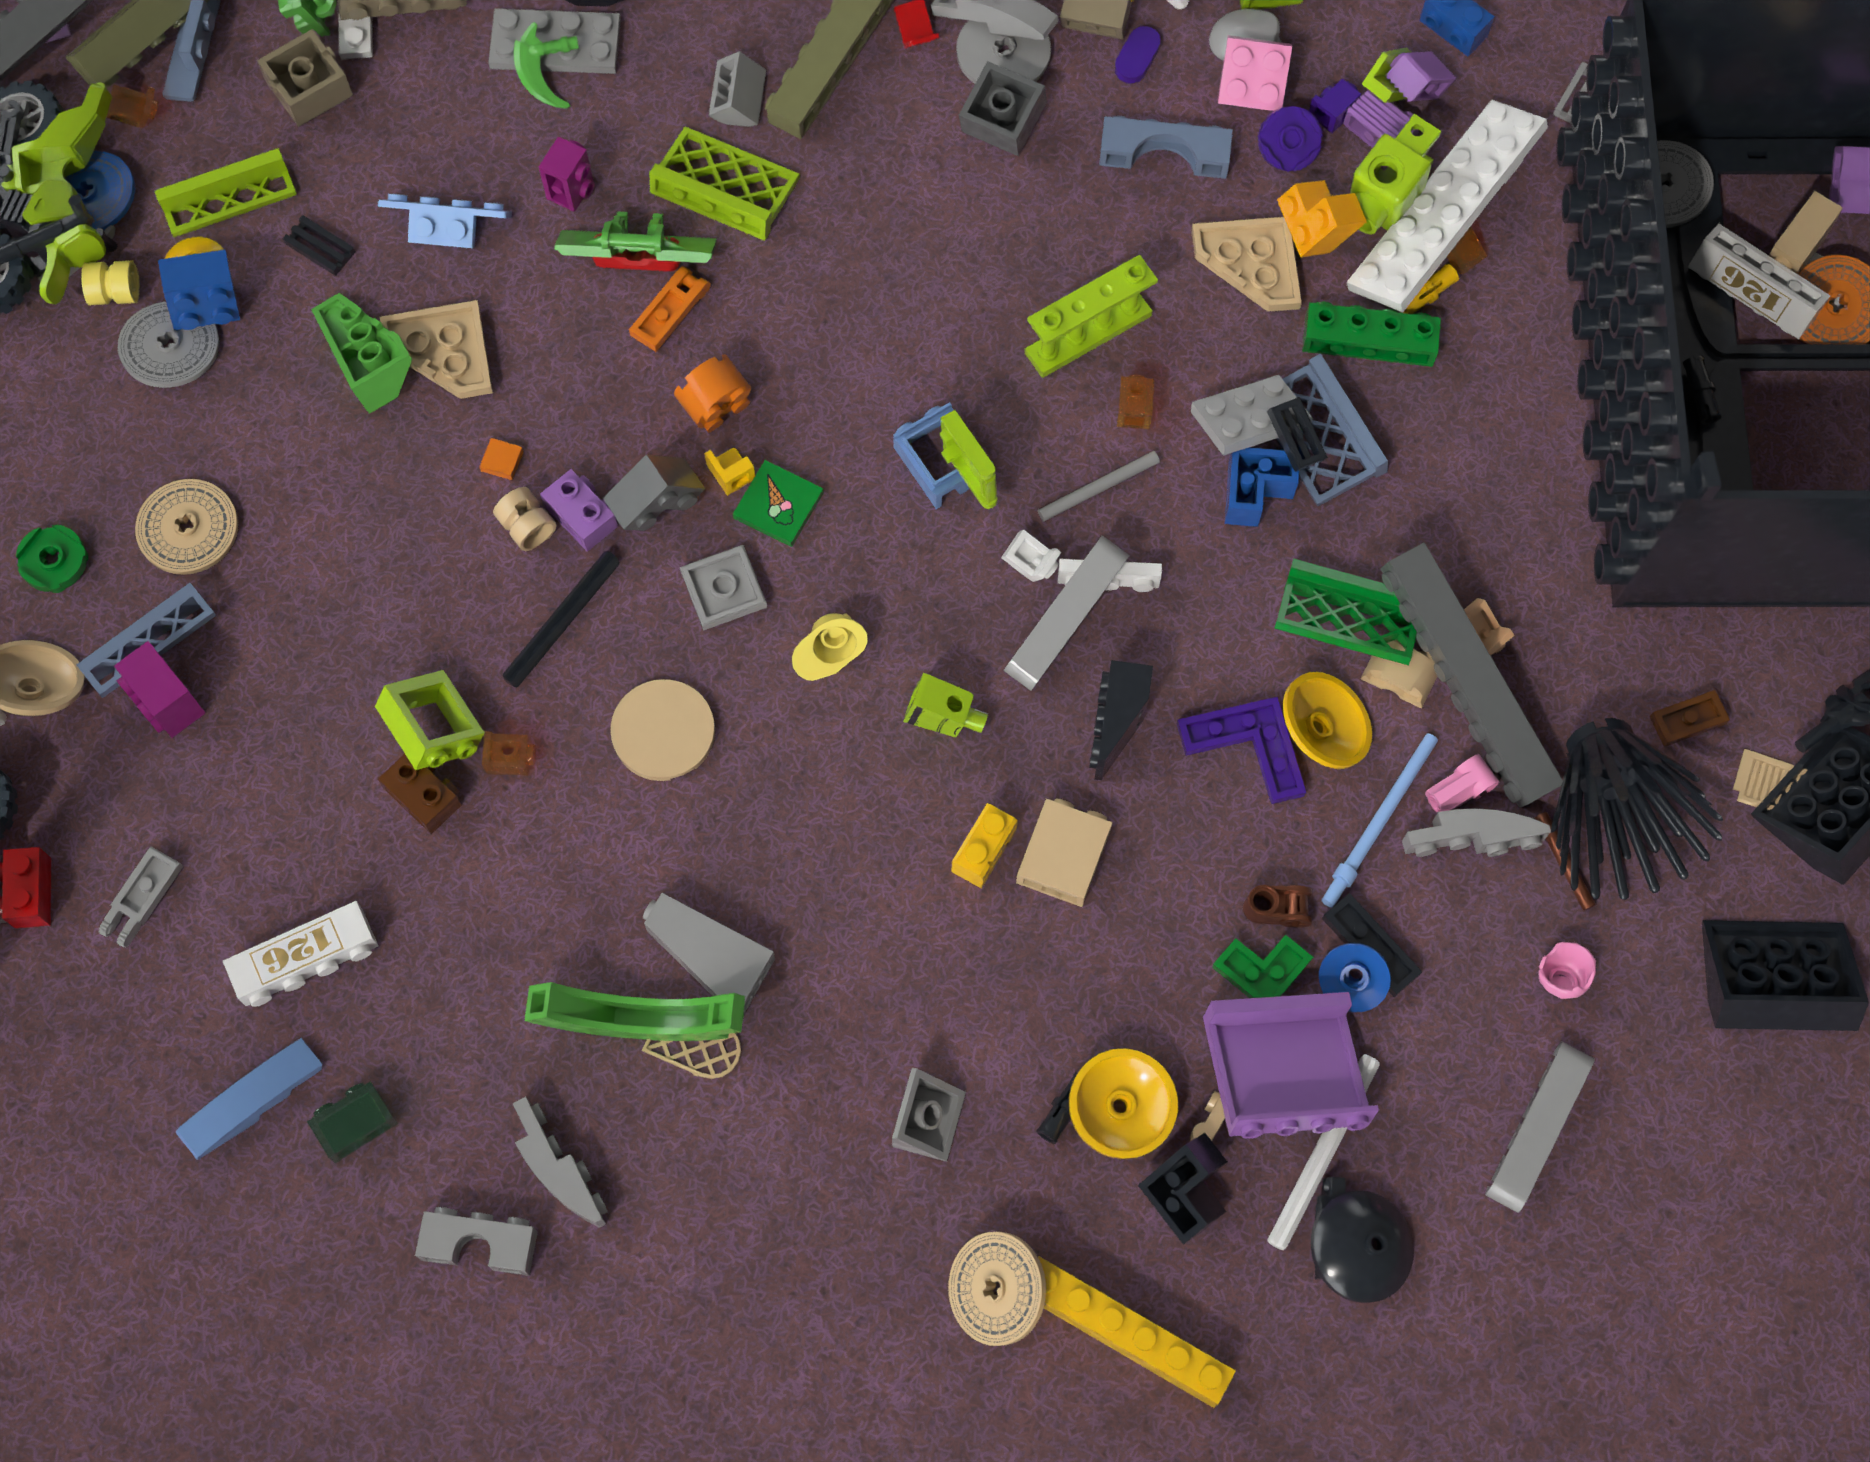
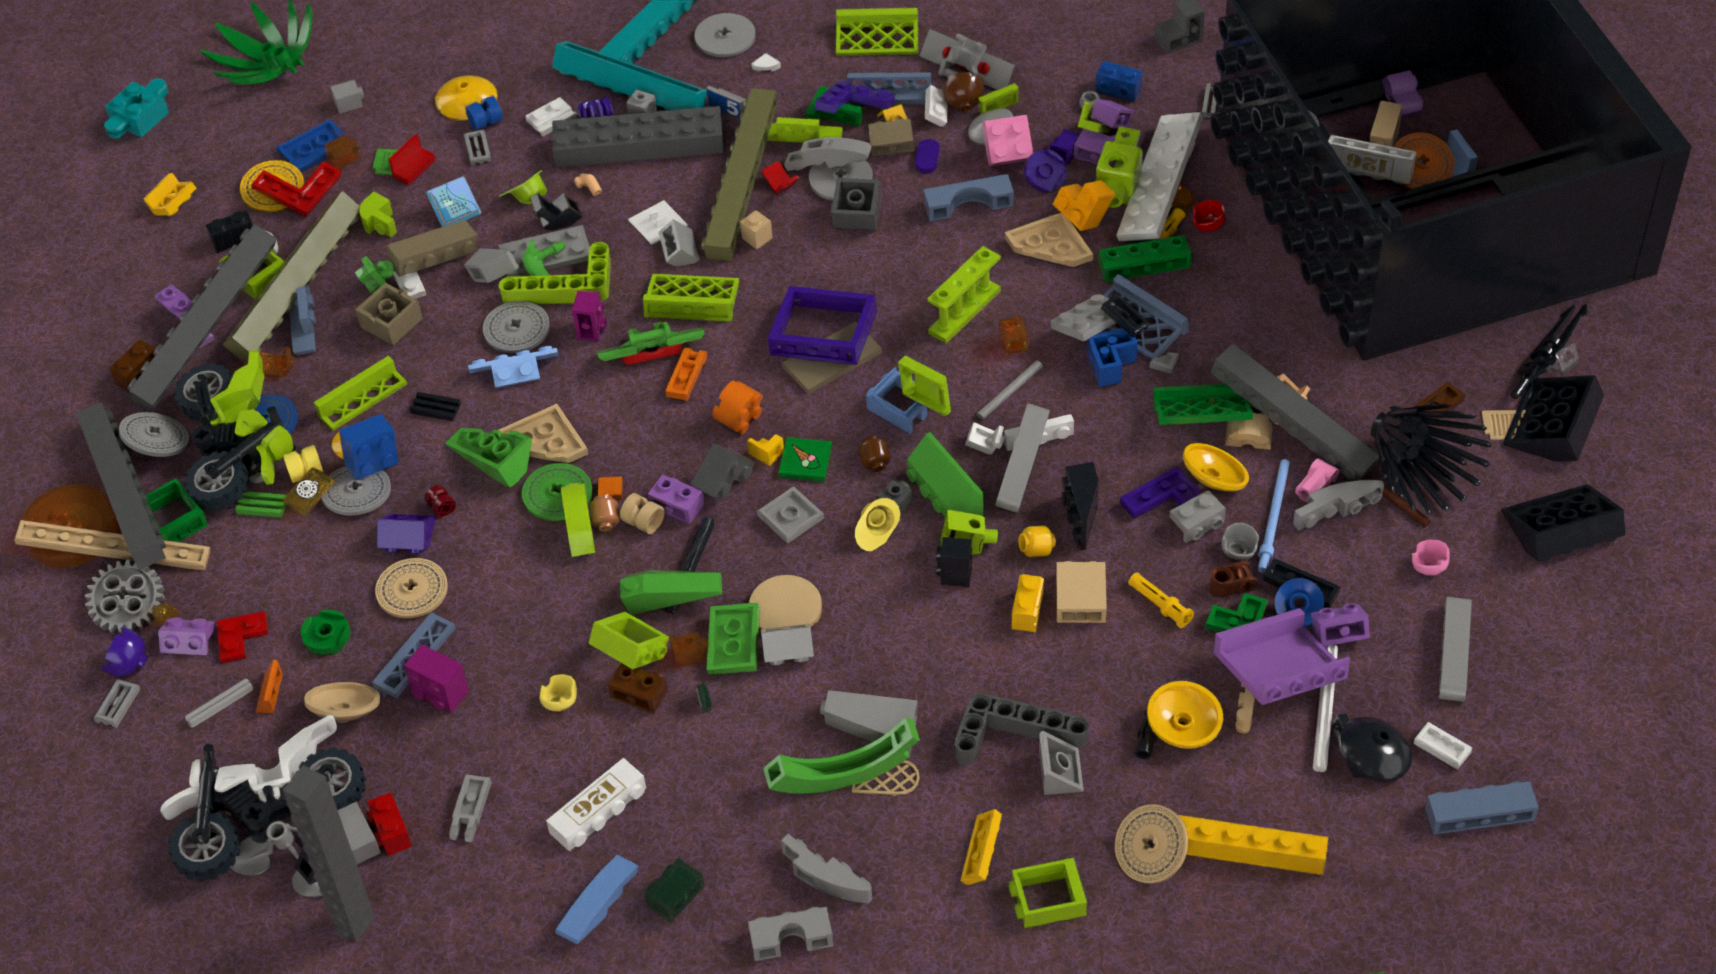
camera: 15 degrees left, 20 degrees down
(18, 312) = (261, 500): none -> bright green tile
(102, 329) = (308, 491): none -> clear yellow slope
(206, 435) = (405, 532): none -> dark purple slope
(269, 404) = (438, 499): none -> dark red wheel
(317, 755) = (559, 693): none -> light yellow hair
(431, 498) = (577, 519): none -> lime arch
(448, 157) = (503, 337): none -> light grey piece
(454, 440) = (539, 487): none -> bright green piece
(468, 41) = (490, 264): none -> light grey slope
(475, 498) = (604, 512): none -> nougat head
(500, 836) = (703, 697): none -> clear green tile
(509, 647) = (665, 588): none -> bright green wedge
(559, 107) = (561, 288): none -> lime beam
(571, 760) = (733, 638): none -> bright green plate
(638, 795) = (787, 643): none -> light grey brick
(723, 36) = (653, 220): none -> white piece
(774, 1203) = (981, 847): none -> yellow plate
(795, 1286) = (1045, 873): none -> lime window
(850, 103) = (756, 229): none -> tan brick
(860, 337) = (818, 348): none -> dark purple window
(872, 530) = (874, 453): none -> reddish brown head
(876, 348) = (815, 374): none -> dark tan tile
(876, 619) = (898, 492): none -> dark grey brick
(892, 1025) = (1015, 722): none -> dark grey beam
(909, 749) = (954, 561): none -> black brick
(943, 616) = (943, 479): none -> bright green slope
(1036, 750) = (1036, 541): none -> yellow head
(1172, 918) = (1168, 605): none -> yellow pin
(1180, 1191) = (1241, 746): black brick -> none
(1273, 788) = (1198, 516): none -> light grey bracket
(1316, 840) = (1240, 536): none -> light grey hair
(1331, 515) = (1164, 363): none -> light grey tile
(1395, 1036) = (1340, 624): none -> medium lavender brick
(1404, 29) = (1088, 96): none -> light grey plate
(1458, 1272) = (1442, 745): none -> white plate
(1469, 1391) = (1481, 807): none -> sand blue brick
(1490, 286) = (1208, 215): none -> red hair

